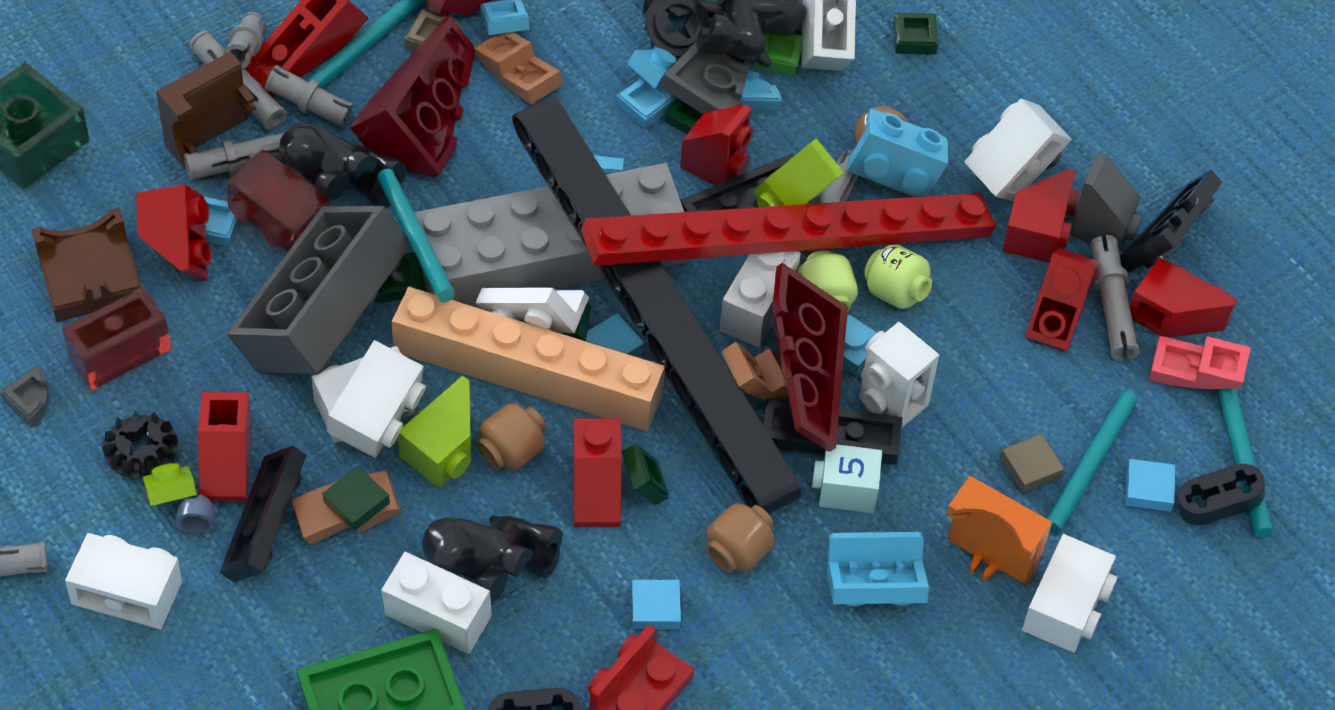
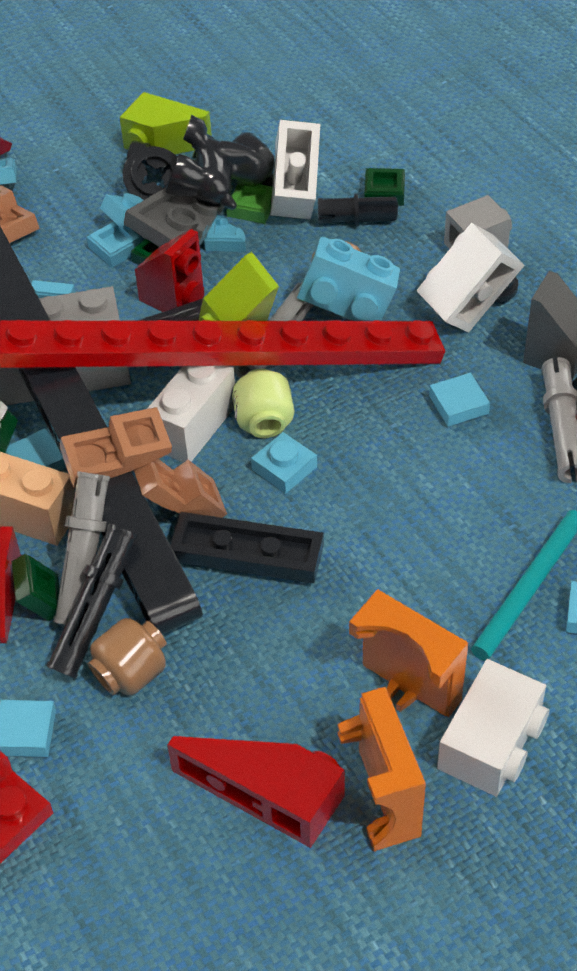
camera: 10 degrees right, 5 degrees down
(687, 446) = (82, 538): none -> light grey pin
(711, 343) = (122, 447): none -> nougat slope
(725, 435) = (92, 600): none -> black pin
(810, 353) = (226, 464): dark red wedge -> none
(848, 478) = (257, 595): light aqua brick -> none
(877, 568) = (274, 693): medium azure bracket -> none
(881, 644) = (268, 780): none -> red slope
(891, 63) = (357, 209): none -> black axle
(898, 276) = (337, 395): yellowish green head -> none
(898, 374) = (320, 487): white brick -> none
(987, 630) = (391, 769): none -> orange piece
(1012, 277) = (459, 399): none -> medium azure tile
(1014, 81) = (481, 212): none -> light grey brick
(1031, 463) = (463, 584): dark tan tile -> none
(1038, 217) = (490, 342): red slope -> none
(1062, 298) = (507, 418): red slope -> none

